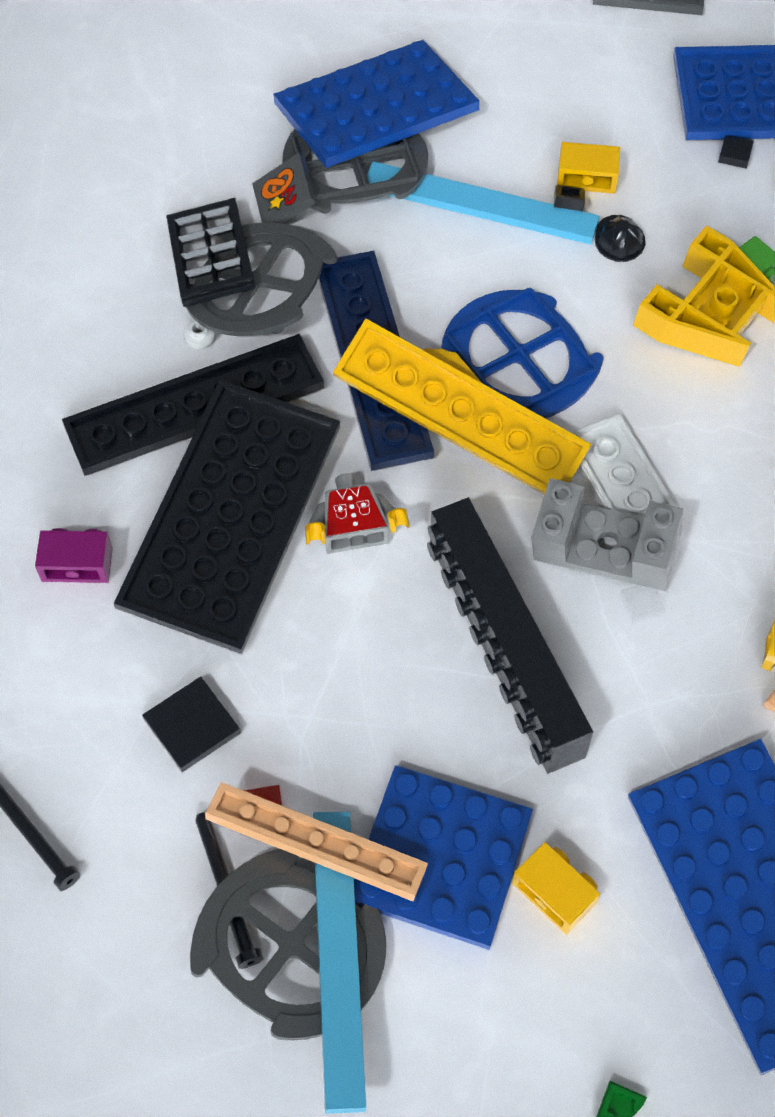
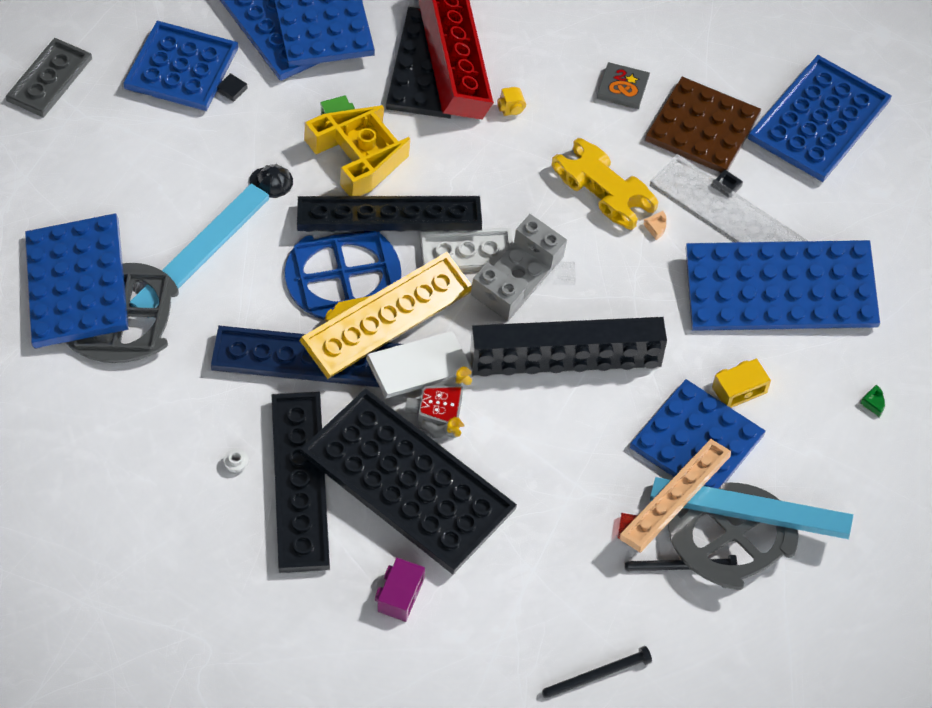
camera: 75 degrees left, 5 degrees down
(191, 724) = (557, 553): black tile -> none
(218, 288) = (212, 436): black piece -> none
(232, 322) = (178, 377): dark grey window -> none
(284, 191) = (136, 364): dark grey tile -> none
(404, 467) = (417, 364): none -> white tile
(569, 197) = (226, 195): black tile -> none
(589, 166) = (206, 173): yellow brick -> none
(629, 371) = (389, 213): none -> black plate

